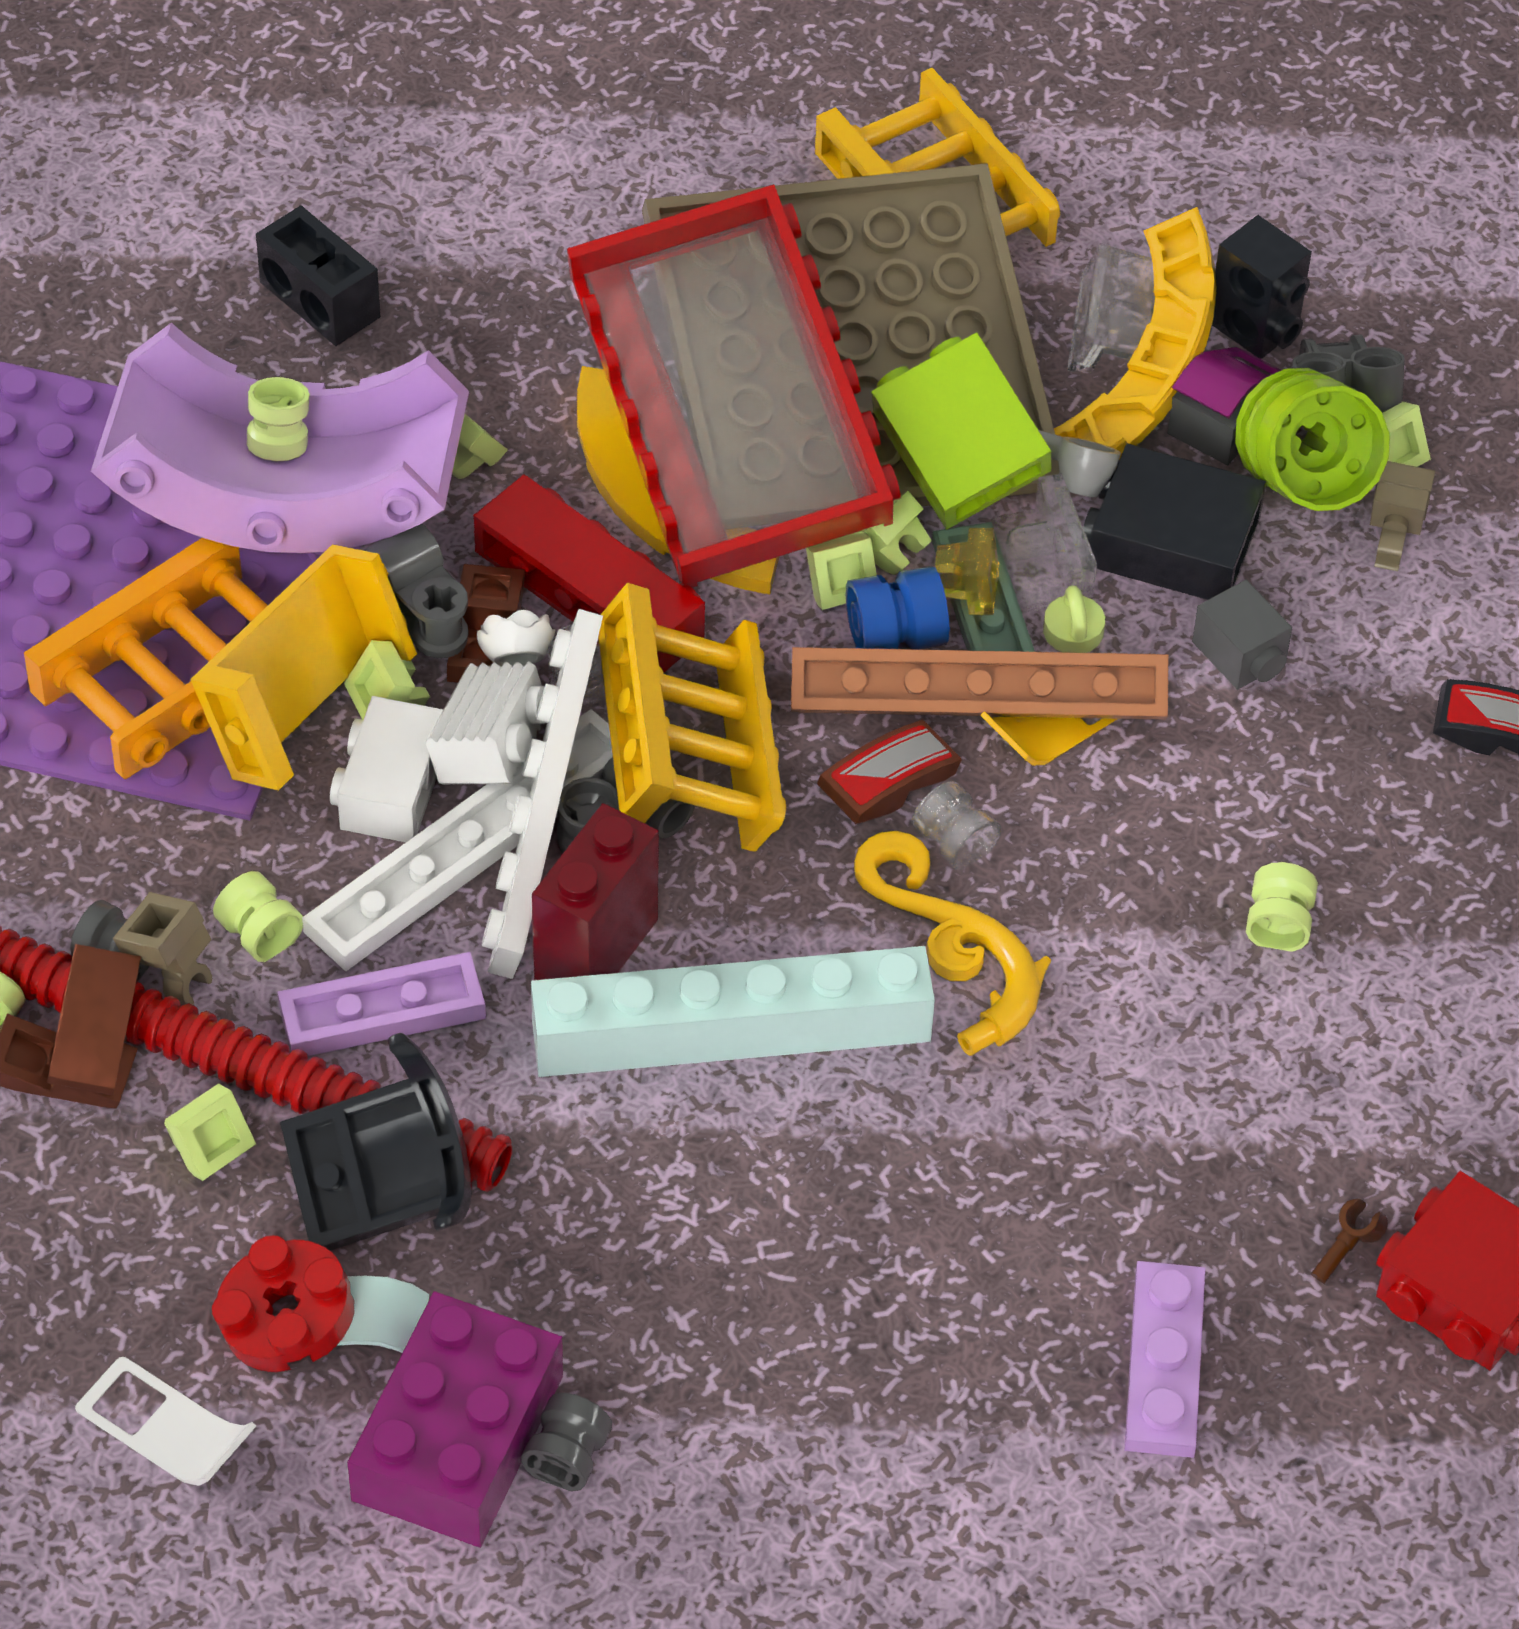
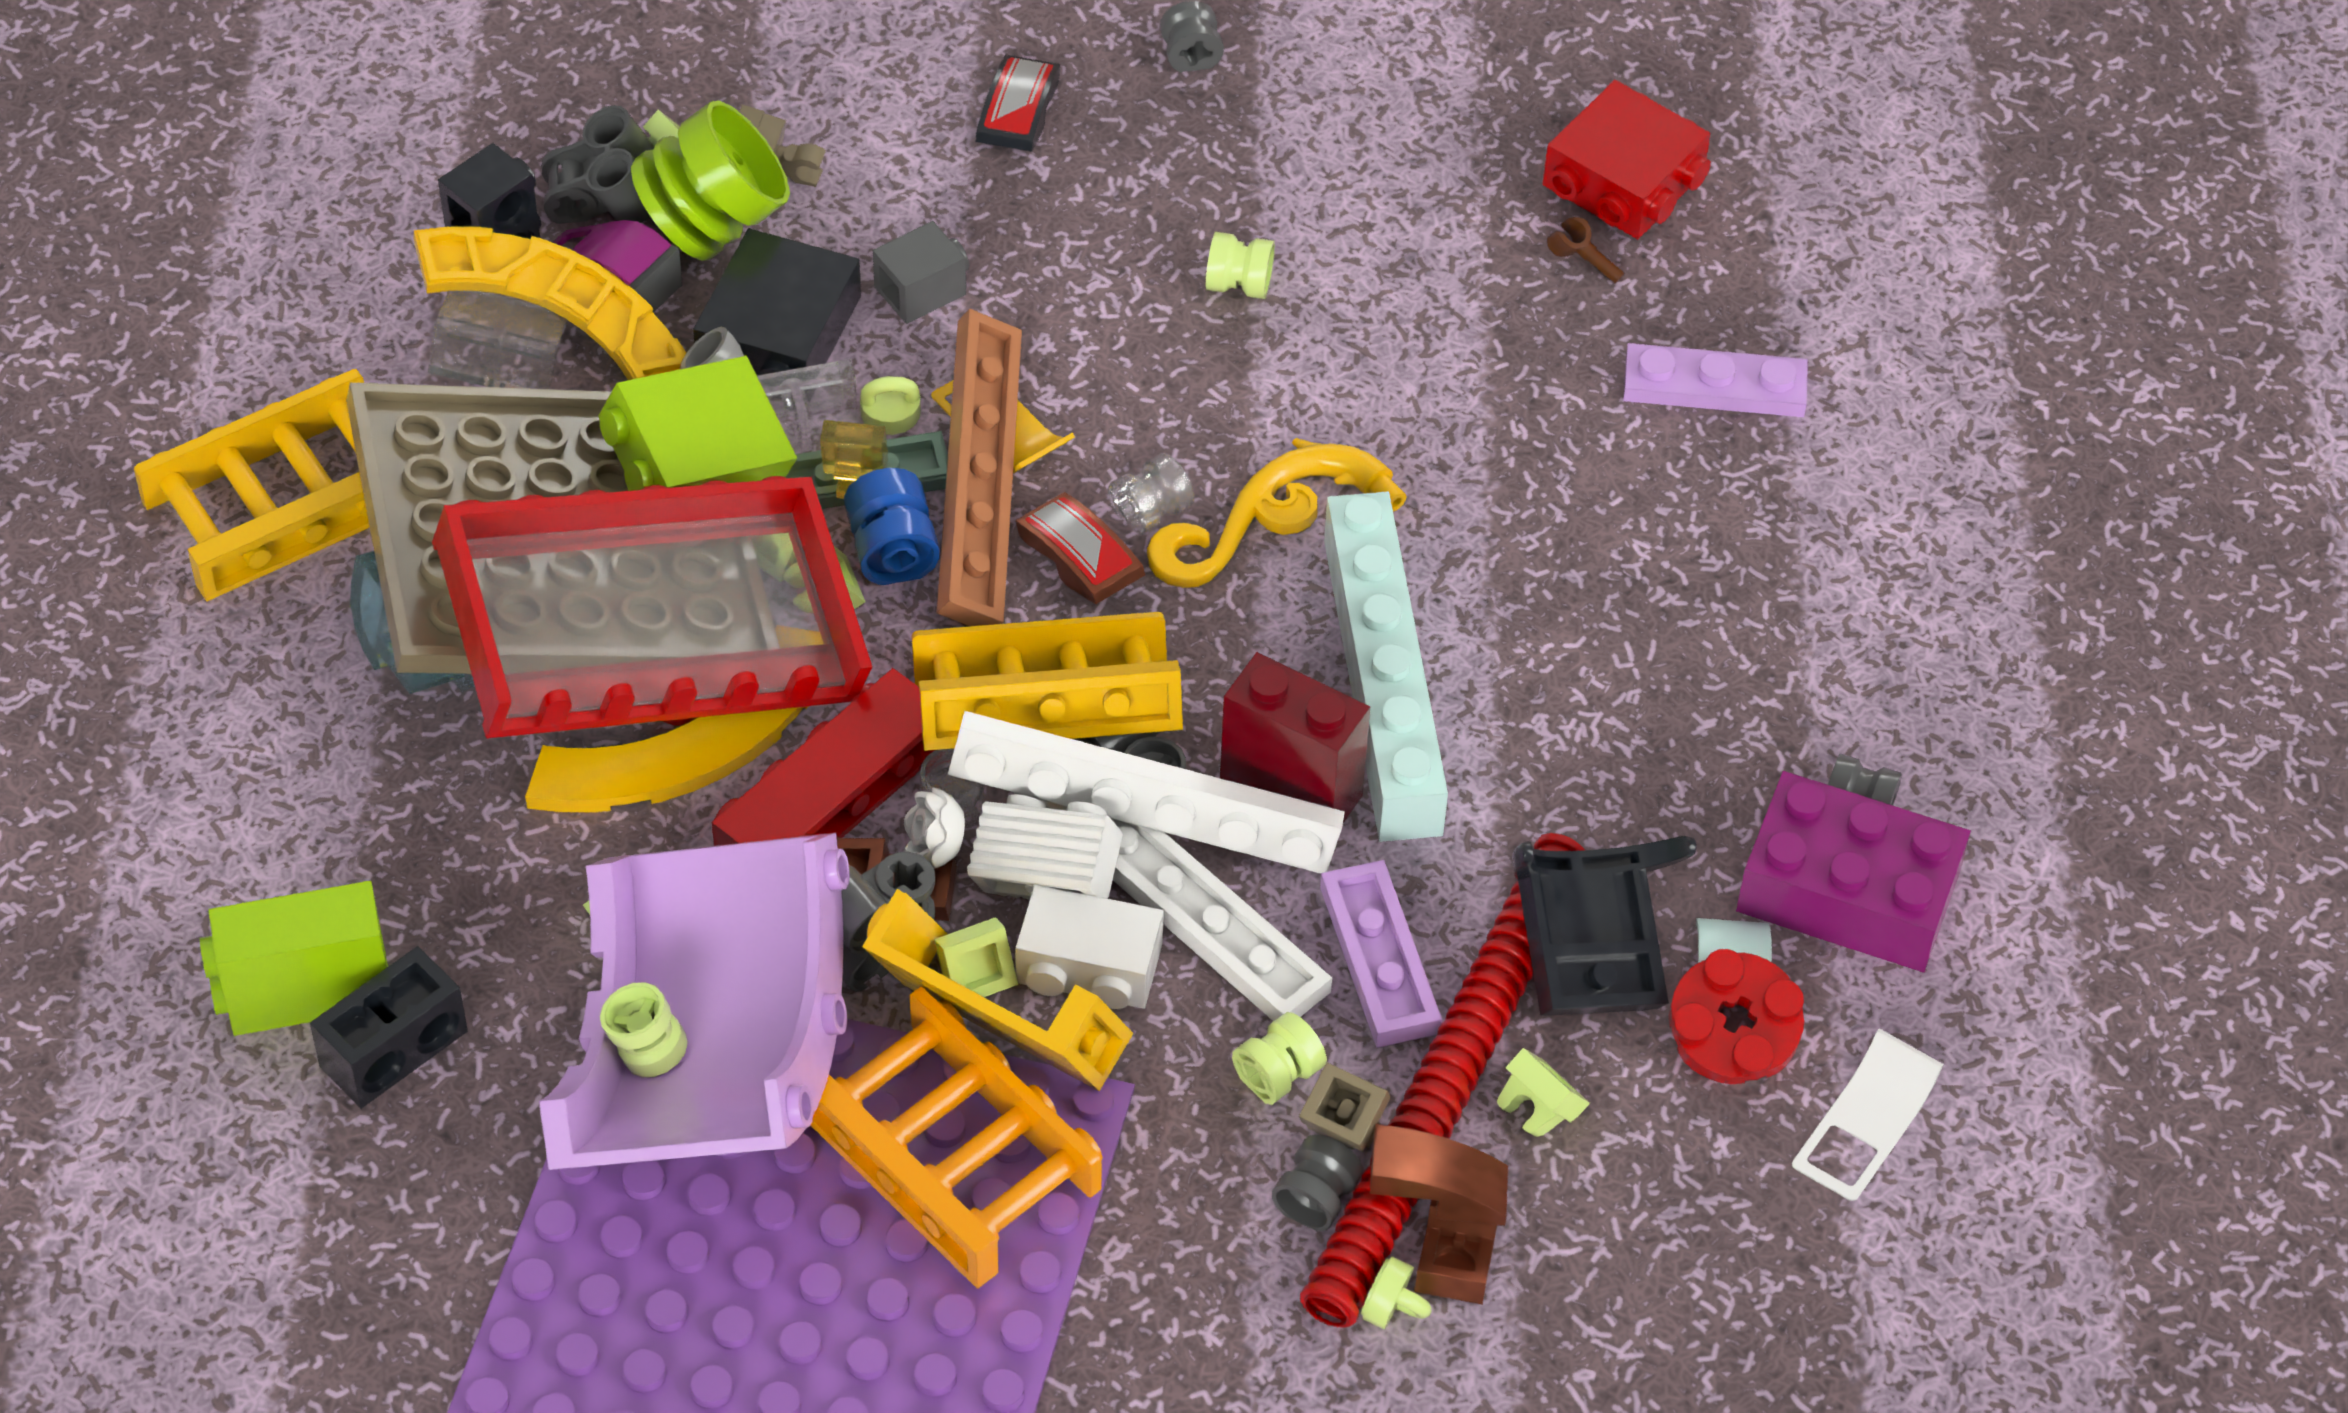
camera: 90 degrees left, 0 degrees up
(384, 204) = (291, 955): none -> lime brick

